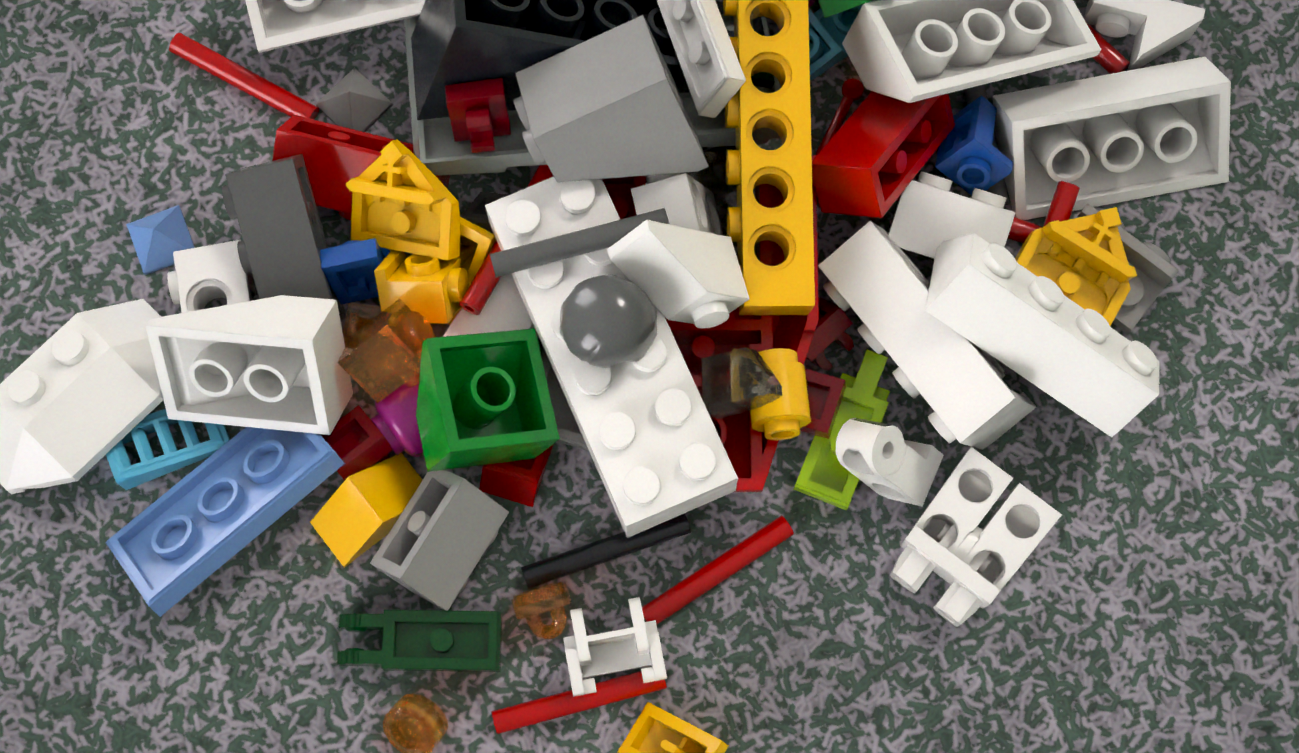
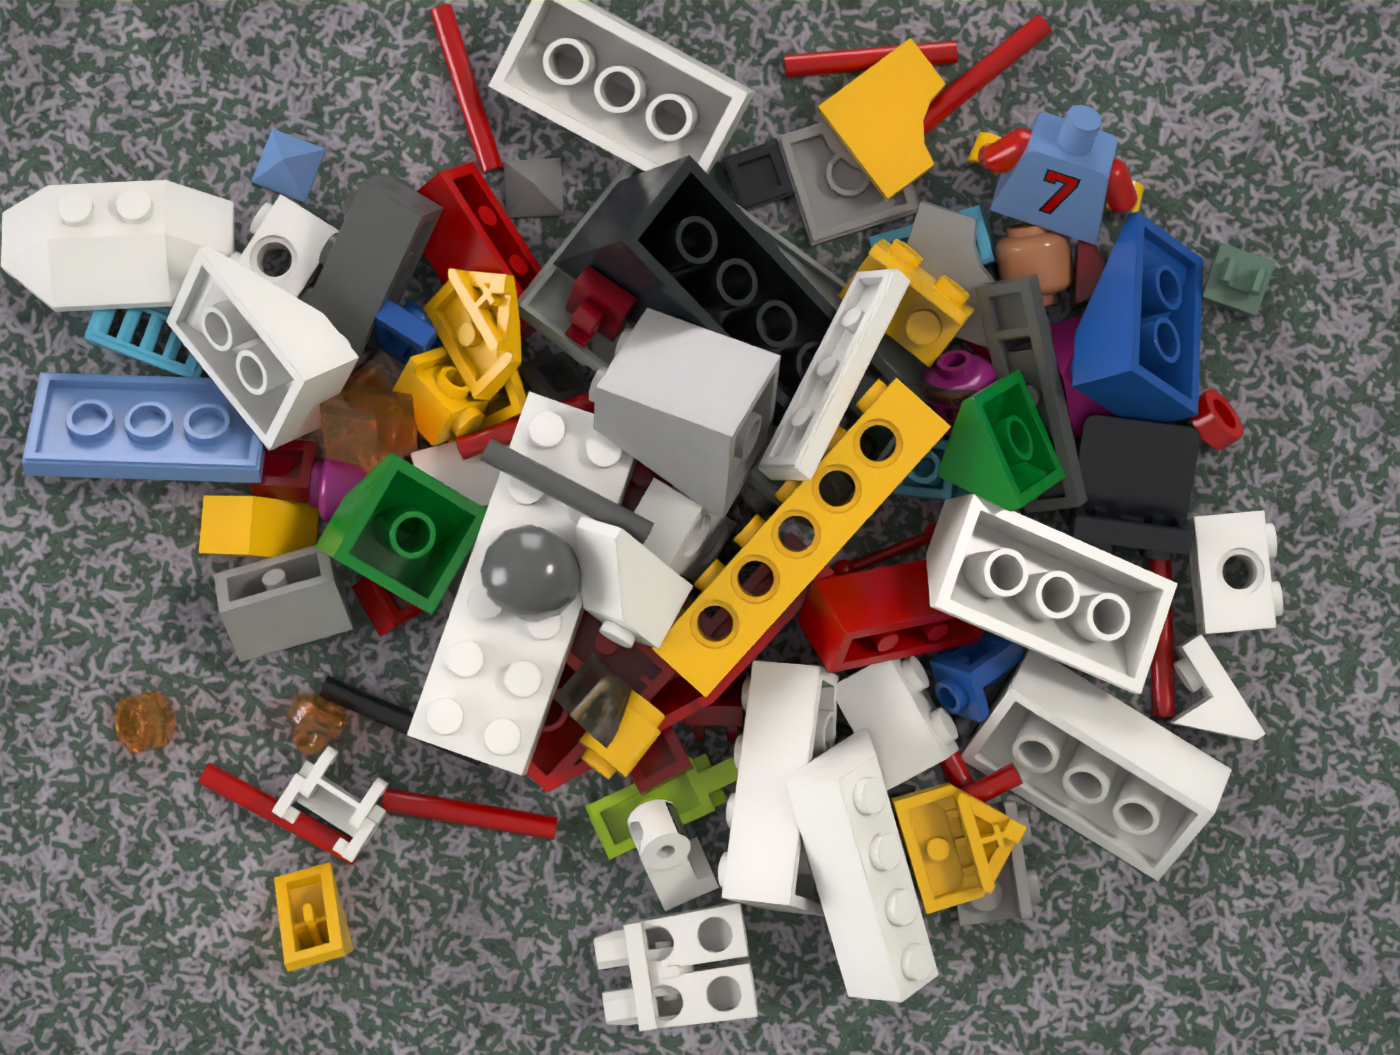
camera: 40 degrees right, 10 degrees up
(428, 640) = (209, 668): dark green hinge -> none

